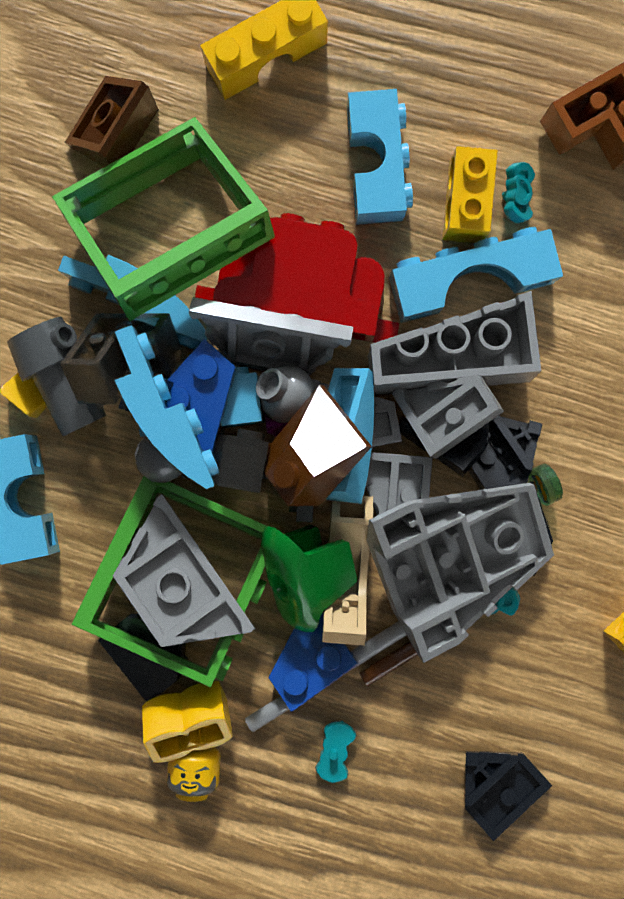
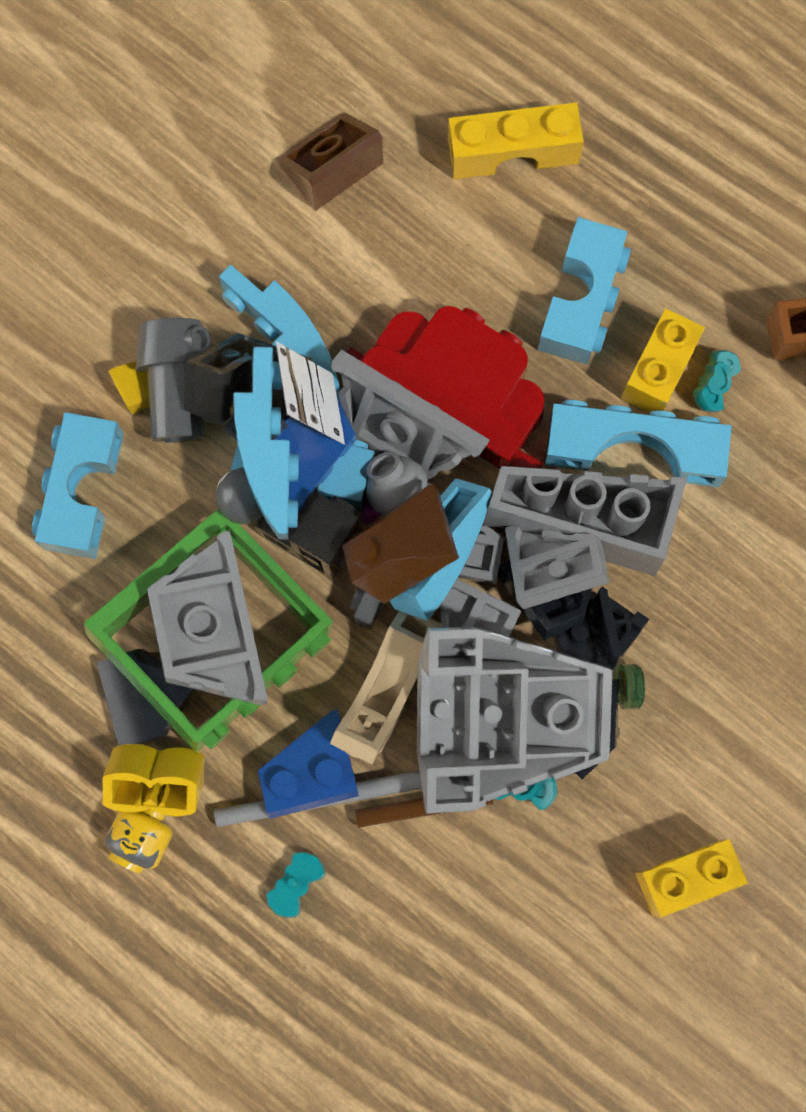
camera: 25 degrees right, 10 degrees down
(181, 350) = (310, 393): none -> white sticker
(189, 260) = (354, 312): bright green window -> none
(306, 573) = (341, 671): green piece -> none
(501, 788) = (456, 996): black slope -> none

